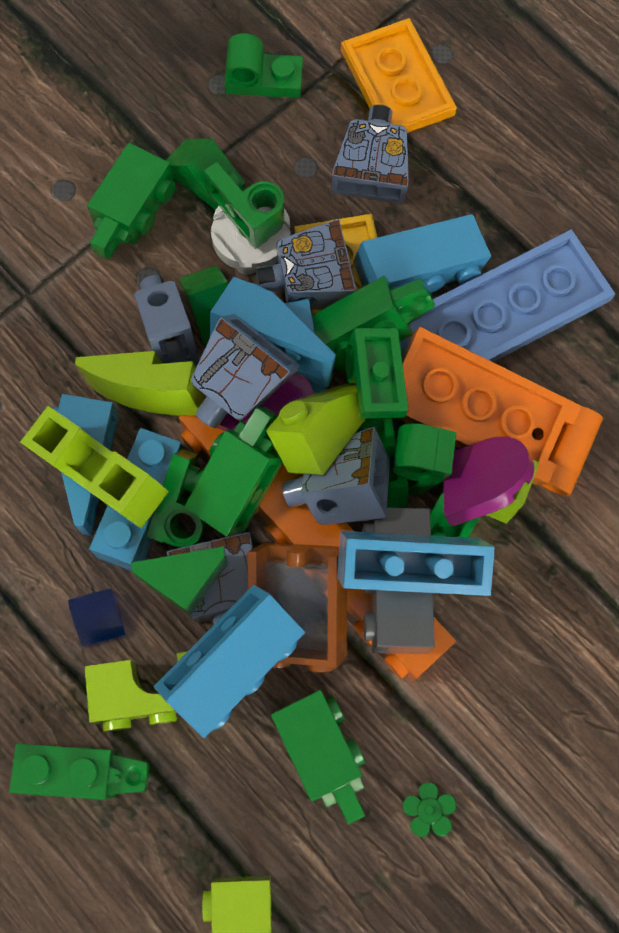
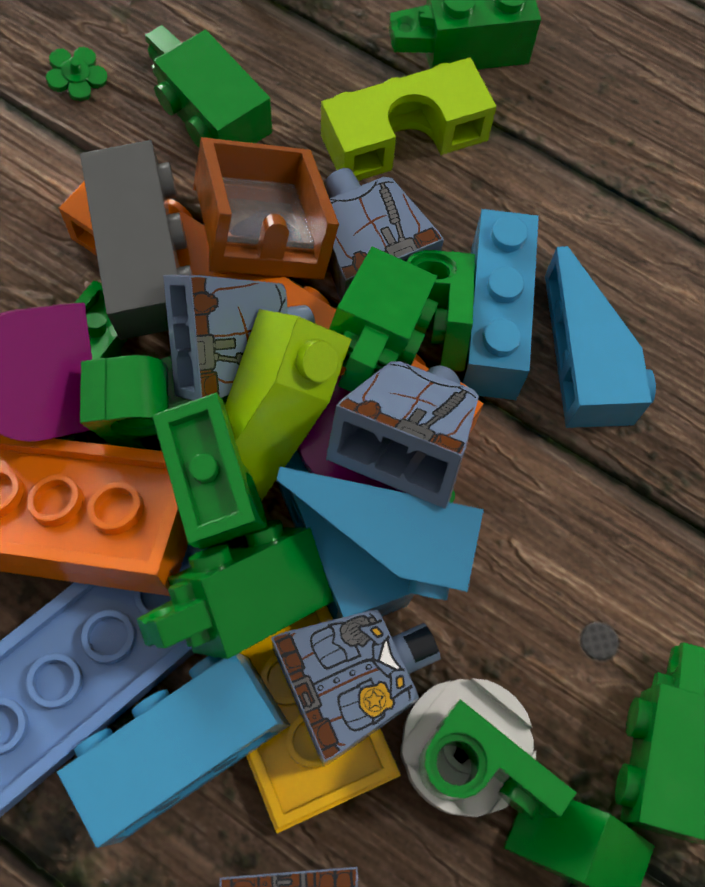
camera: 165 degrees right, 5 degrees down
(95, 466) = (604, 300): lime arch -> none
(97, 617) = (504, 183): clear blue slope -> none
(143, 382) = (550, 436): lime slope -> none
(165, 318) = (550, 542): sand blue torso -> none
(182, 577) = (417, 193): green slope -> none
(202, 292) = (502, 614): green slope -> none
(229, 661) = (328, 112): dark azure brick -> none
(415, 563) = (111, 204): dark azure brick -> none

